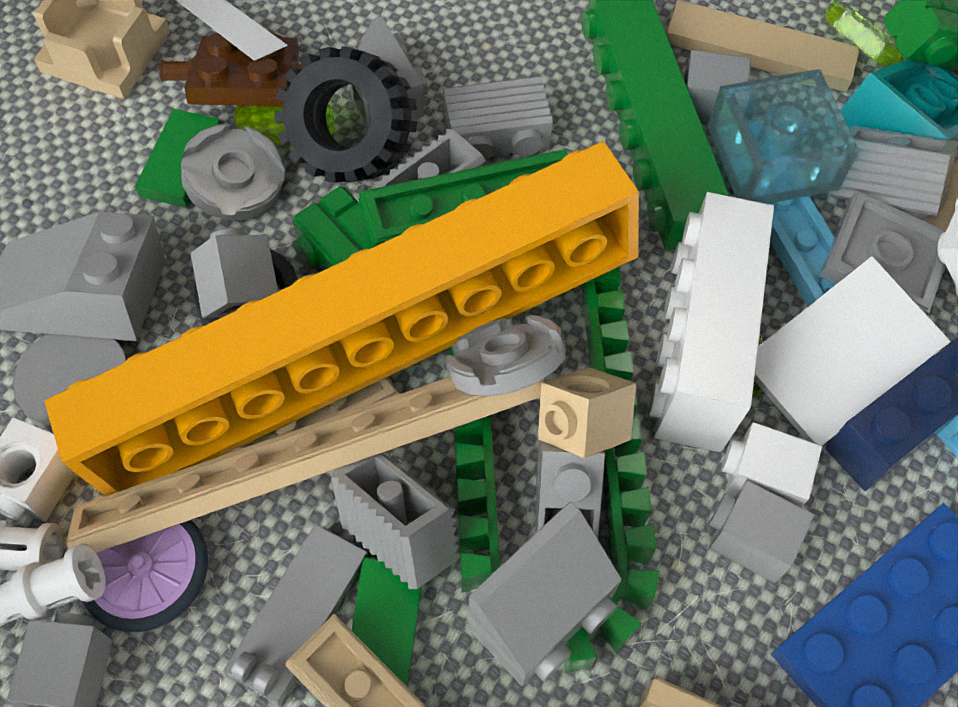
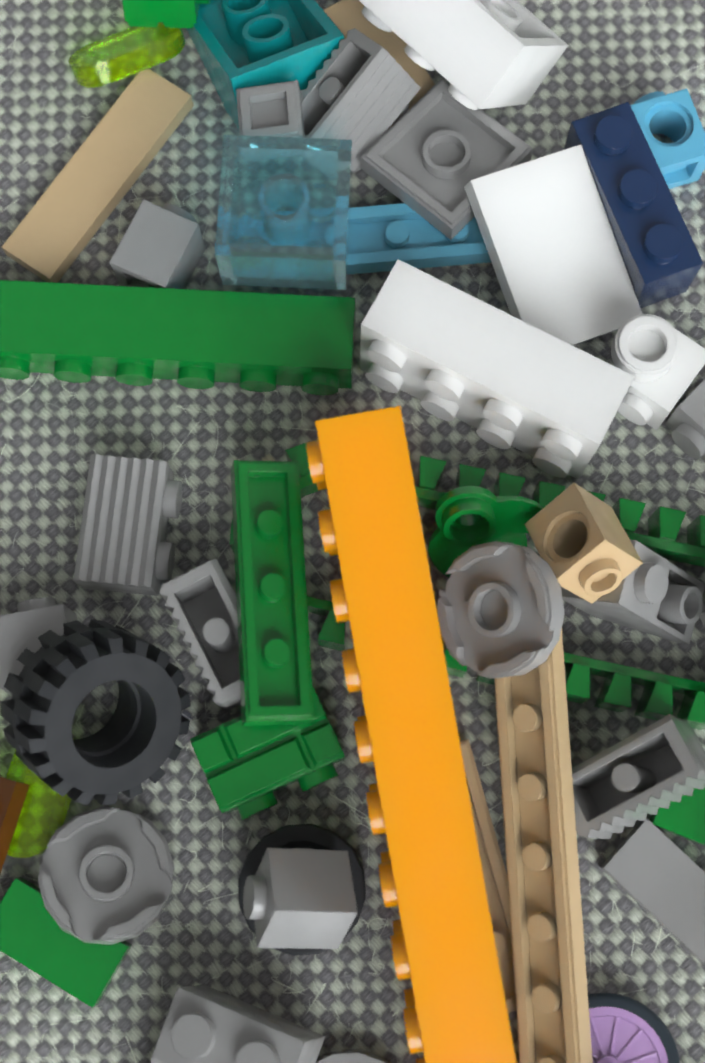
camera: 70 degrees left, 15 degrees up
(585, 336) = (477, 517): none -> green plate
(787, 434) = (645, 347): none -> white tile
(861, 107) = (271, 110): none -> light grey tile

